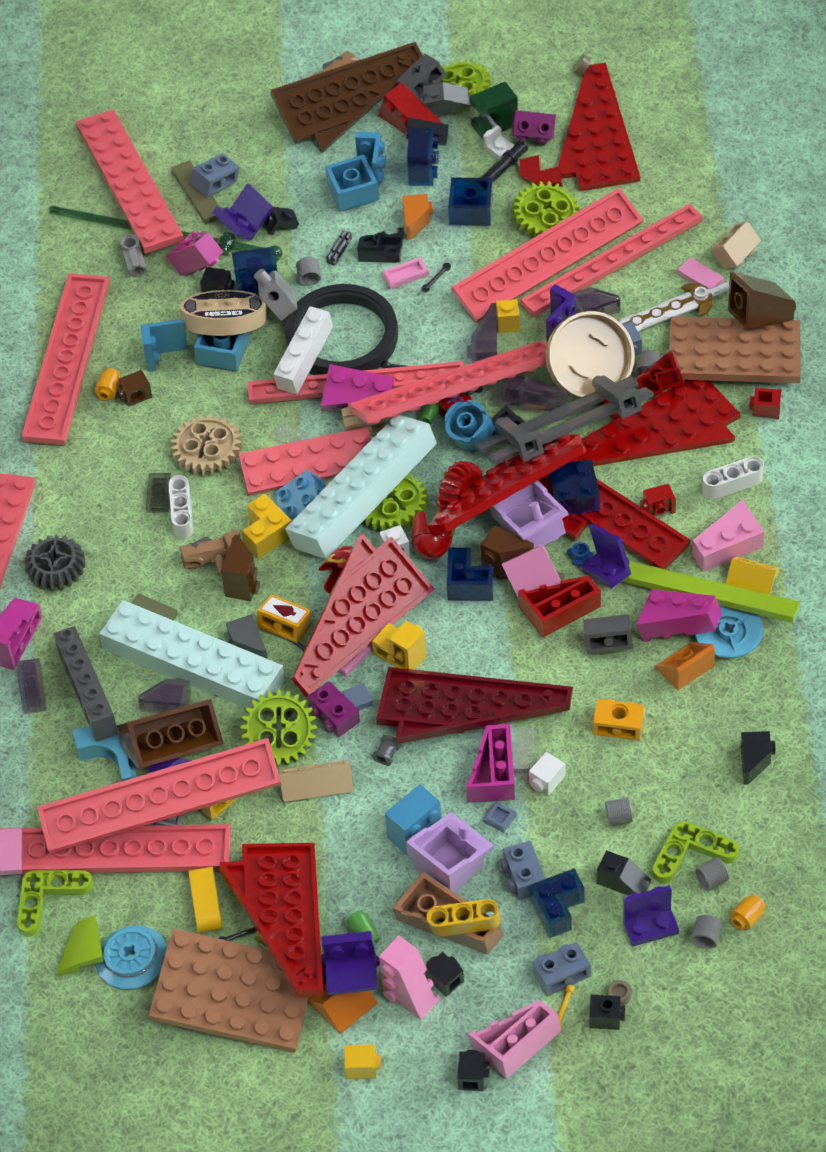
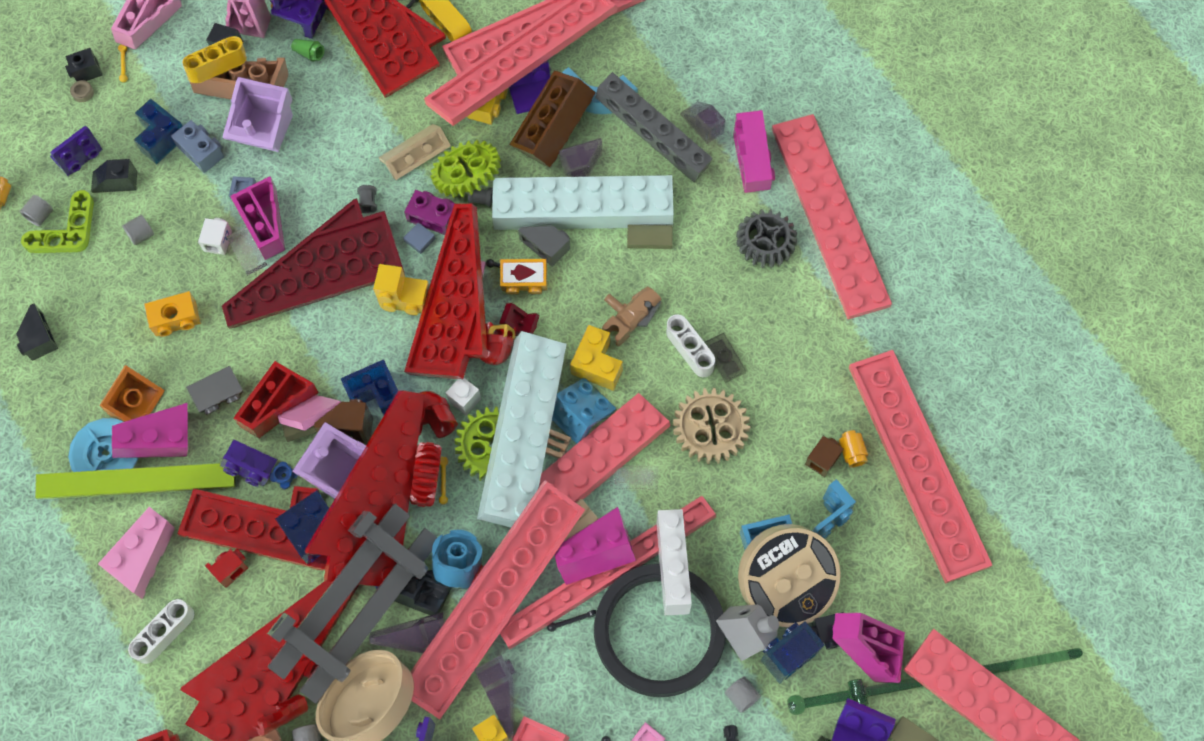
camera: 150 degrees right, 15 degrees up
(132, 254) = (941, 621): light grey piece -> none
(239, 572) = (586, 294): reddish brown slope -> none
(309, 583) = (518, 318): none -> dark red bracket
(411, 815) = (305, 137): dark azure brick -> none
(561, 968) = (132, 83): sand blue brick -> none
(706, 931) = (24, 161): light grey piece -> none
(751, 575) = (101, 527): yellow panel -> none

